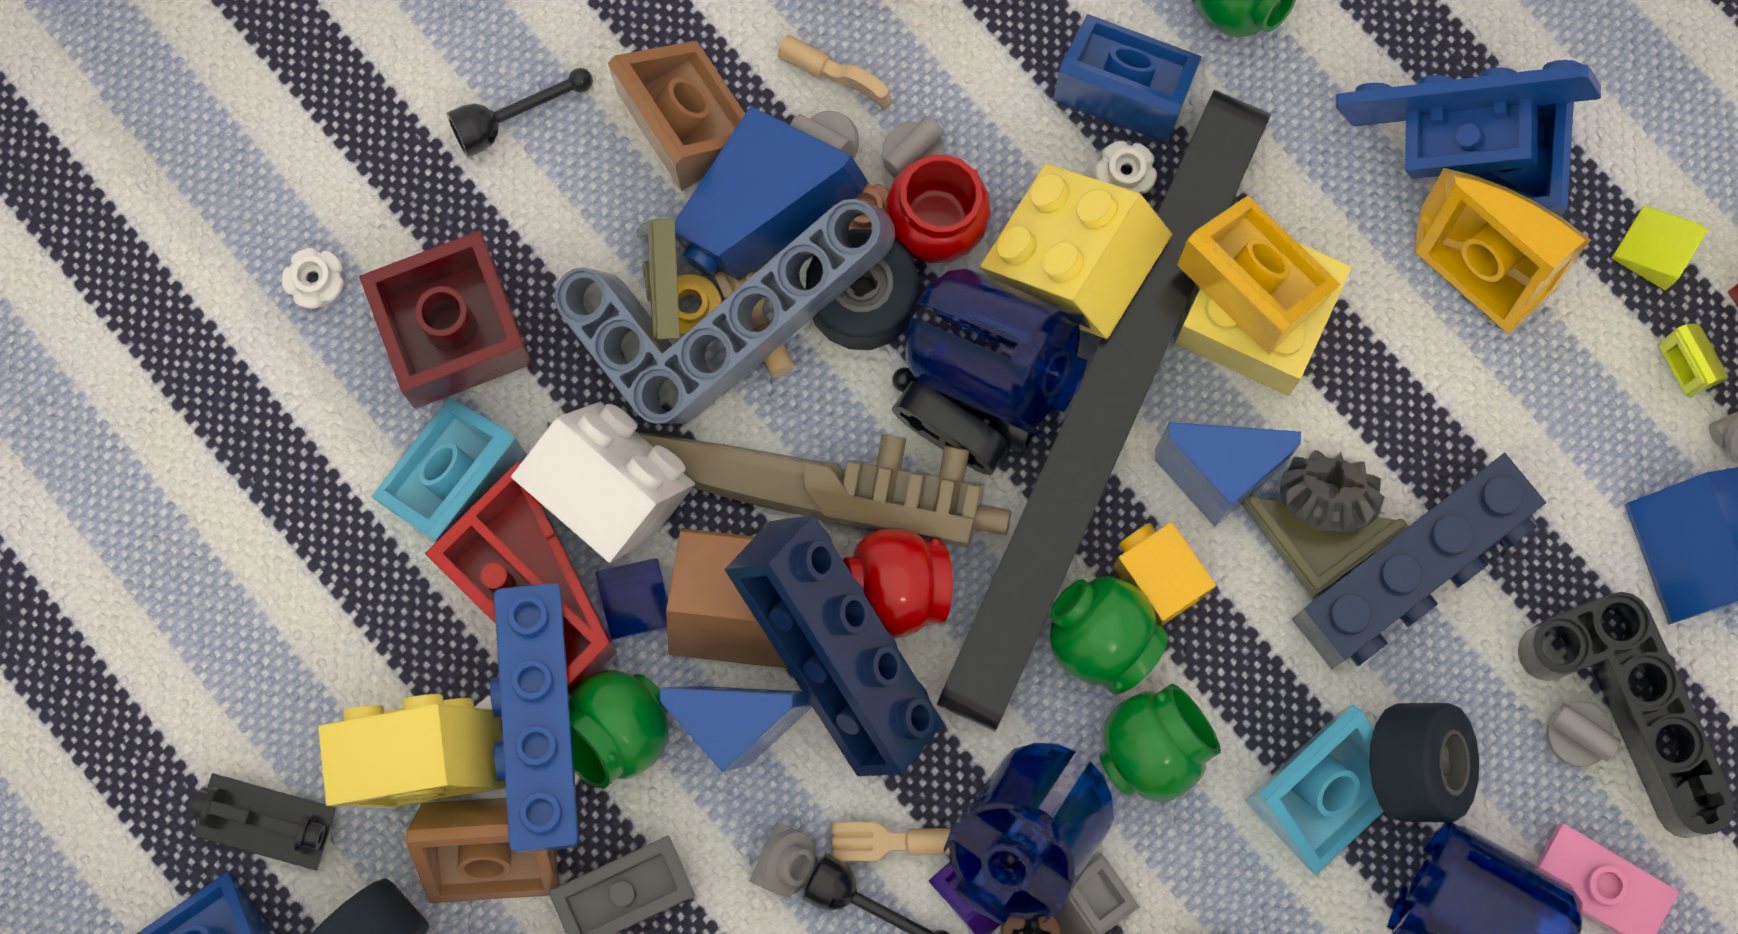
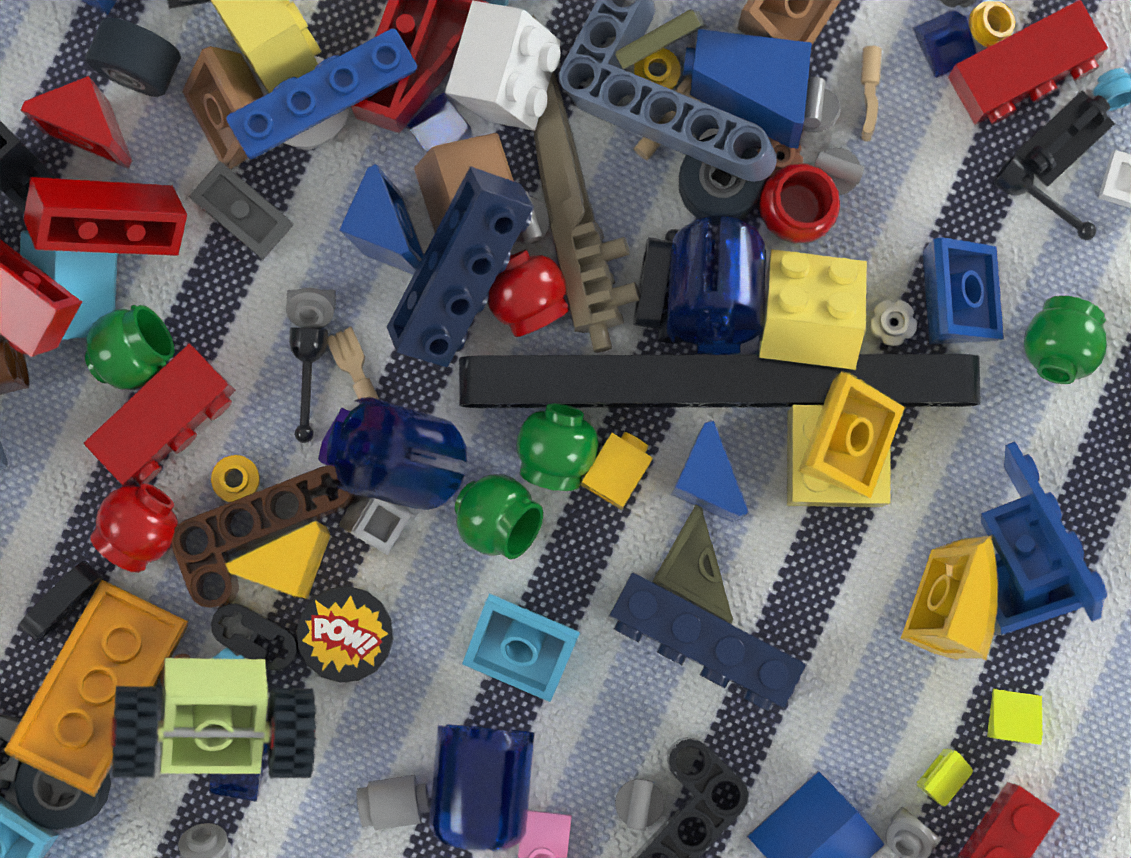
camera: 65 degrees right, 5 degrees up
(616, 726) = (343, 150): green piece -> none
(1306, 492) = (722, 578): dark grey gear -> none
(1424, 762) = (566, 700): black wheel -> none

